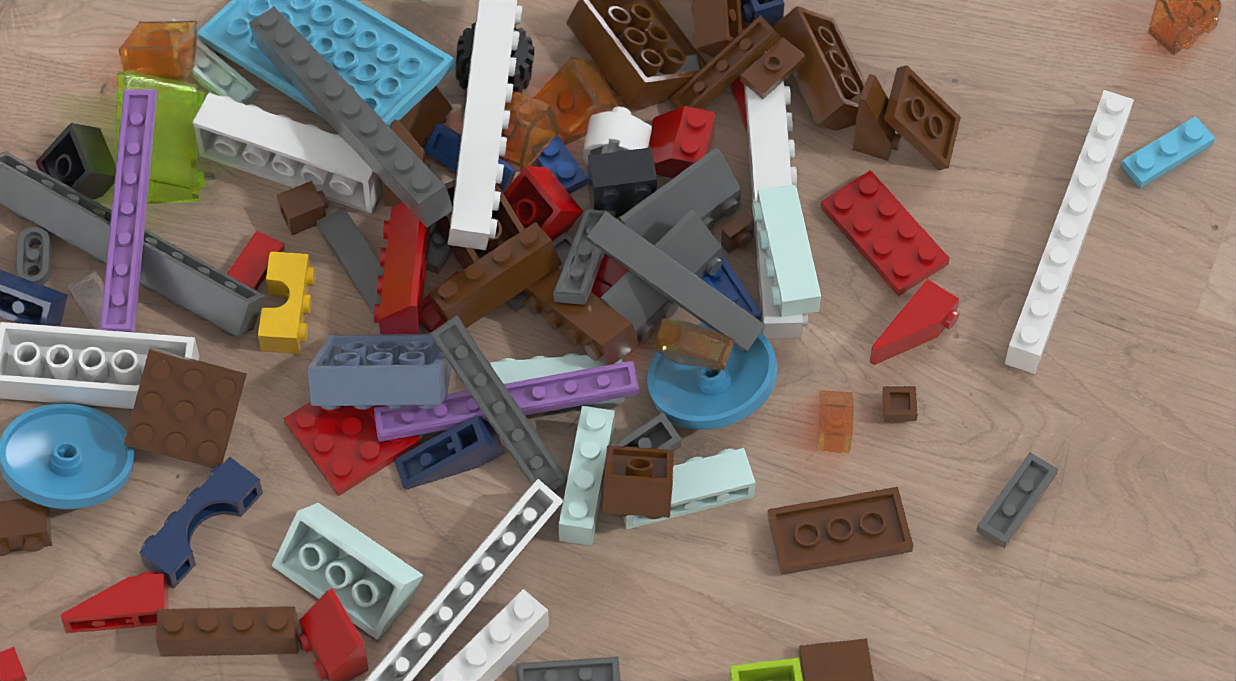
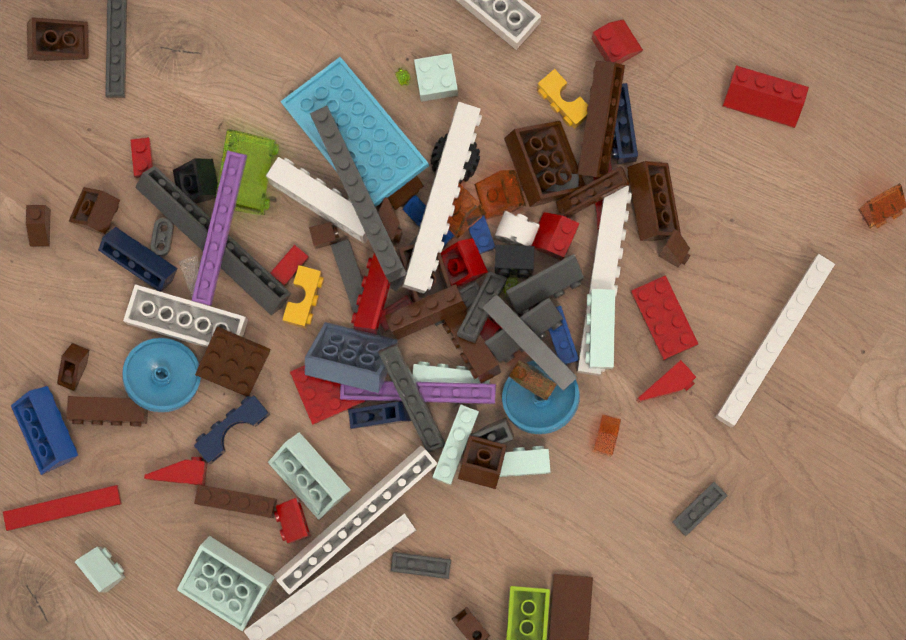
camera: 15 degrees right, 20 degrees up
(161, 49) = (256, 112): clear orange slope -> none
(220, 77) = (282, 123): light aqua tile -> none
(738, 233) = (577, 304): reddish brown plate -> none
(772, 68) = (620, 201): reddish brown plate -> none
(839, 530) = (593, 507): reddish brown plate -> none
(899, 403) = (646, 433): reddish brown plate -> none
(922, 117) = (703, 252): reddish brown plate -> none
(1167, 152) = (848, 296): medium azure plate -> none

